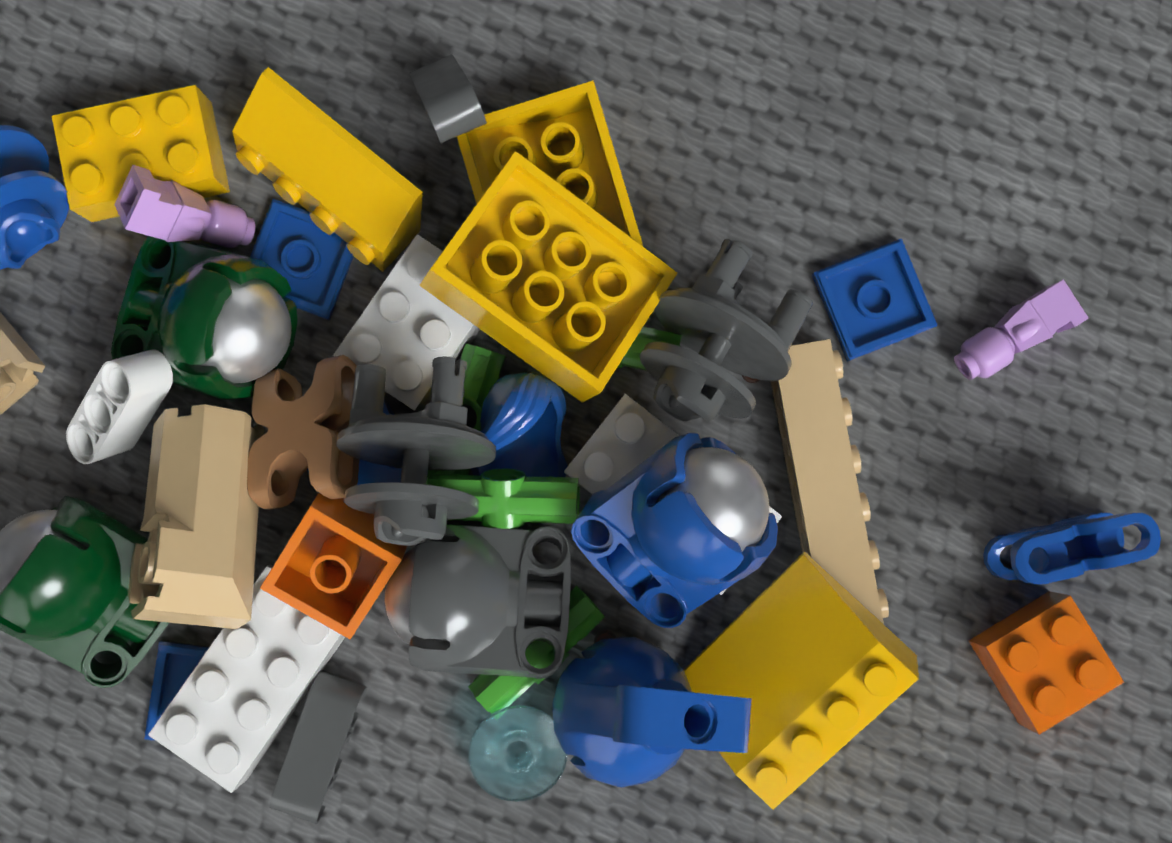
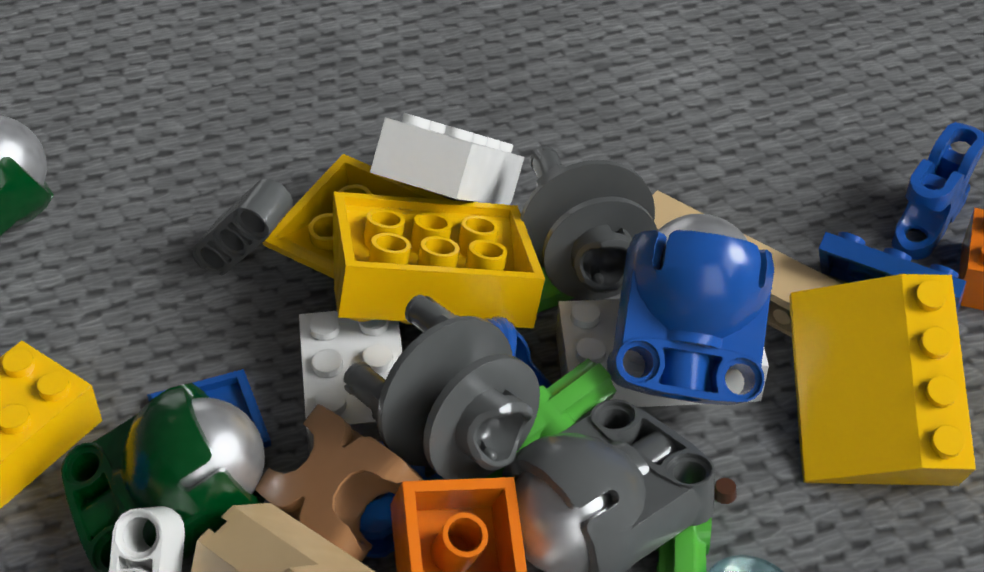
camera: 40 degrees left, 40 degrees down
(178, 213) = (62, 421): lavender piece -> none
(327, 172) = (185, 326): yellow slope -> none
(634, 714) = (805, 469): blue piece -> none
(655, 181) = (447, 160): none -> white brick
(874, 299) = (666, 166): blue tile -> none
(922, 594) = (852, 261): none -> blue plate
(1020, 329) = (763, 124): lavender piece -> none

